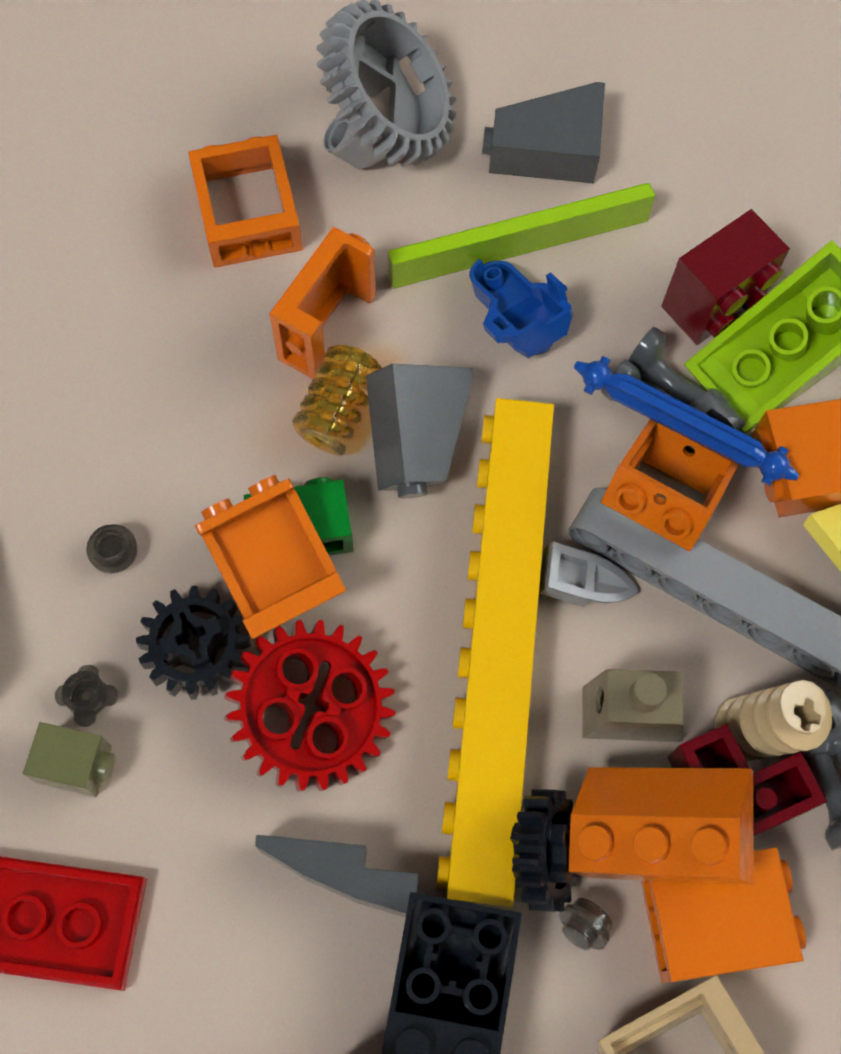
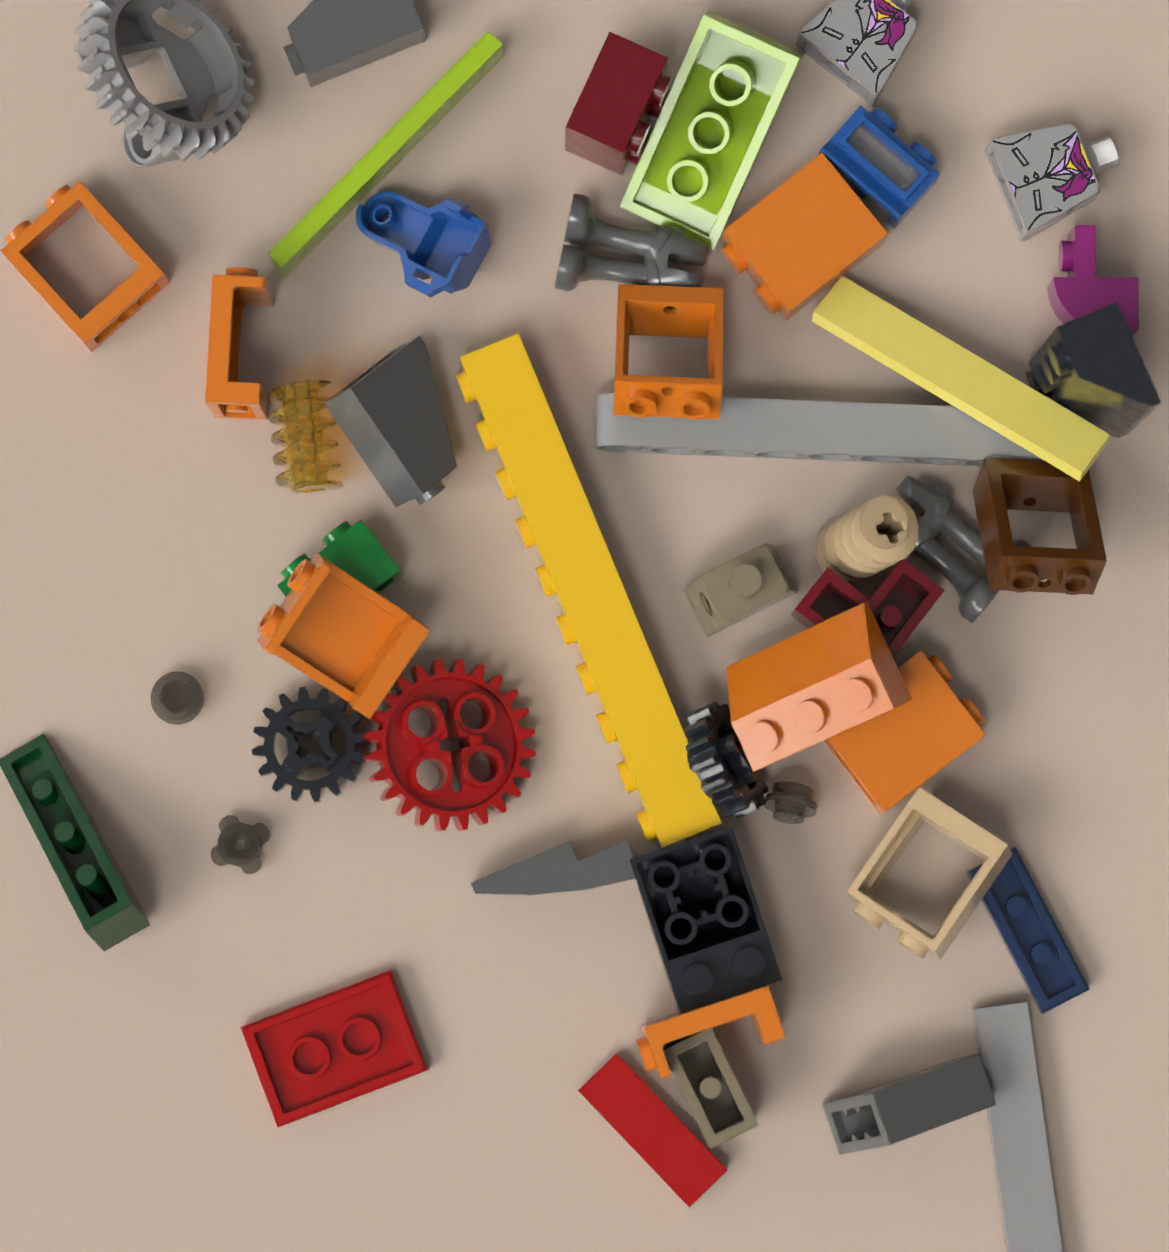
camera: 30 degrees left, 15 degrees up
(69, 759) = (265, 908): olive brick -> none
(582, 577) = (632, 487): light grey plate -> none
(686, 421) = (651, 286): blue wheel -> none

